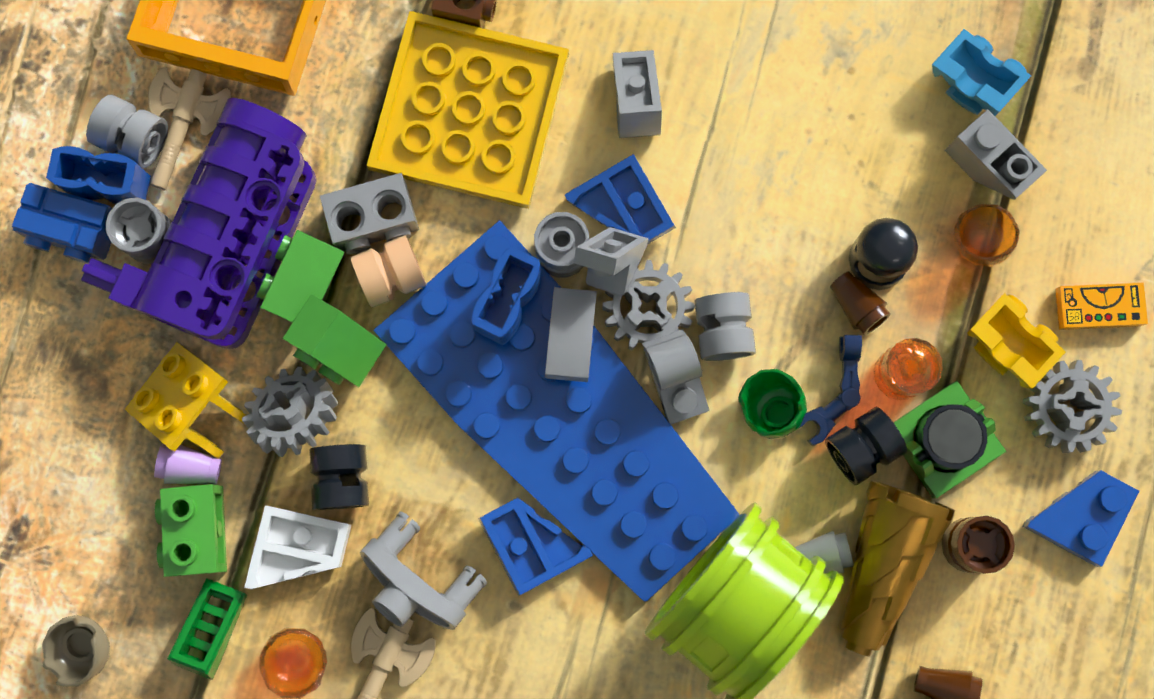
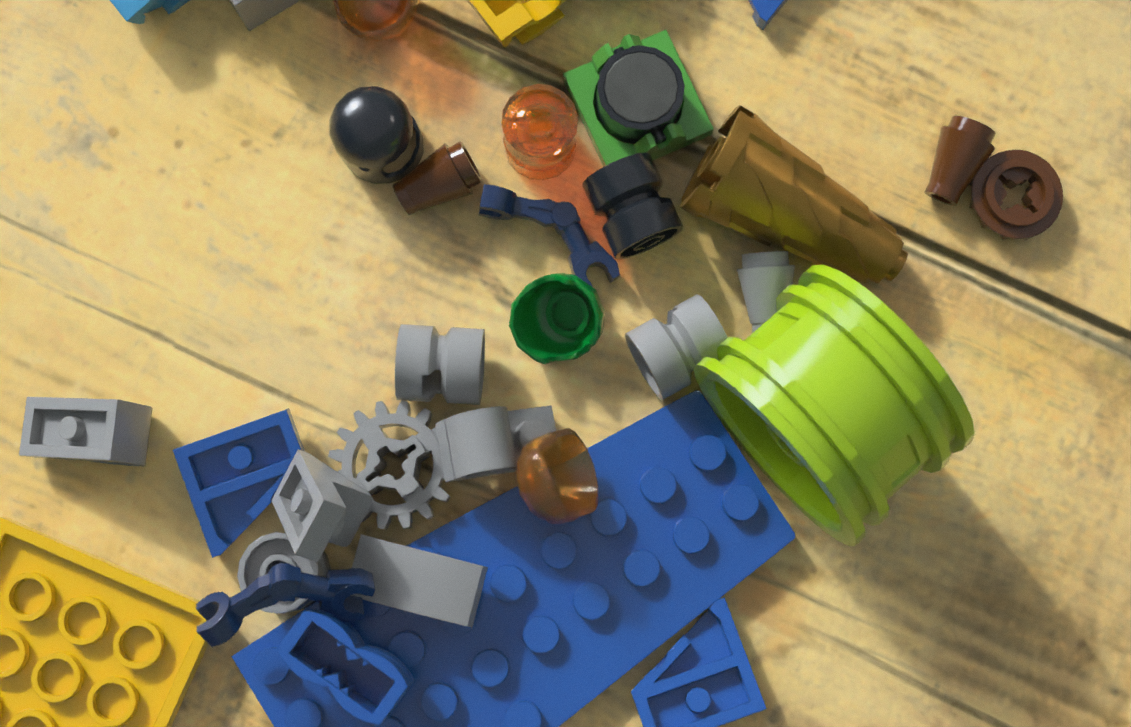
camera: 85 degrees left, 0 degrees up
(555, 244) = (284, 584): none -> dark blue piece
(659, 420) = (557, 477): none -> clear orange hair
(765, 488) = (673, 349): none -> light grey wheel
(978, 544) = (785, 84): reddish brown wheel -> none

